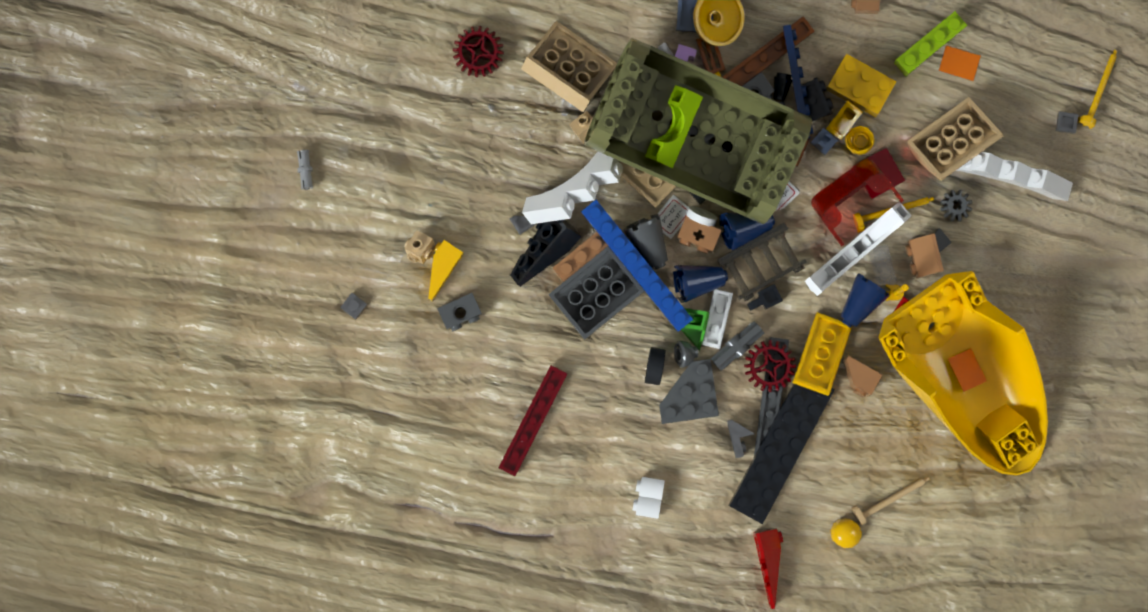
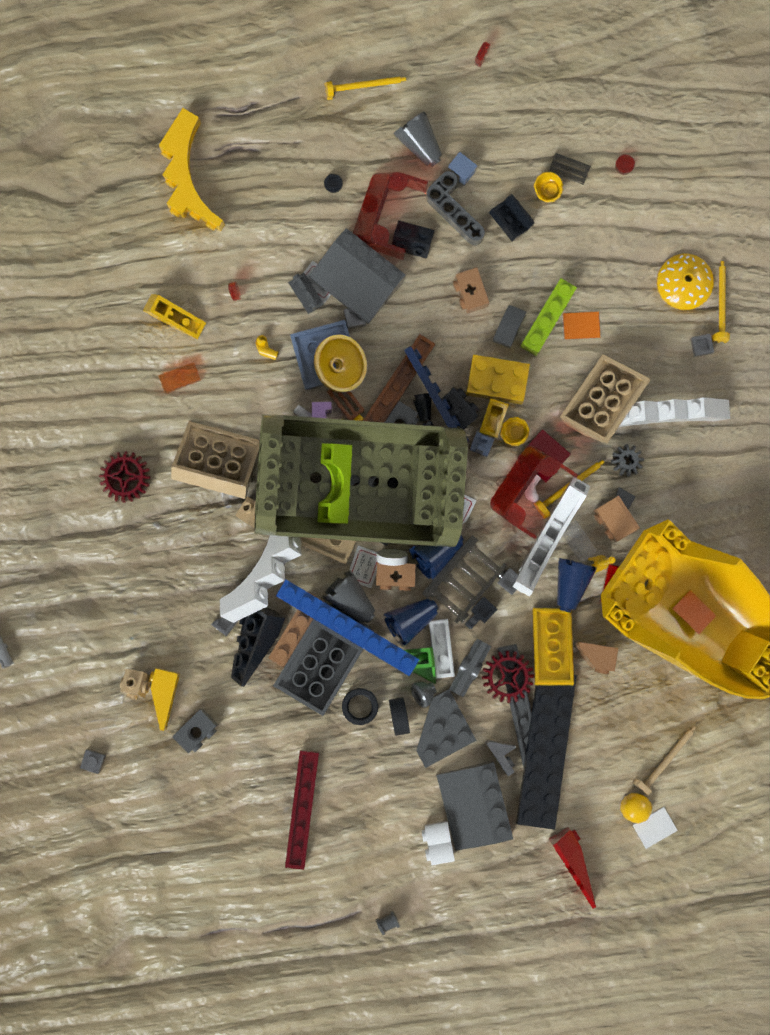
camera: 25 degrees left, 0 degrees up
(575, 554) = (387, 923): none -> dark grey bush
(623, 330) = (345, 706): none -> black tyre
(695, 475) = (474, 806): none -> dark grey slope
(800, 278) = (508, 580): none -> flat silver plate
(854, 200) = (531, 493): none -> white arm
(857, 559) = (655, 828): none -> white sticker
(890, 39) = (509, 326): none -> dark grey slope
(1064, 66) = (679, 292): none -> yellow dish

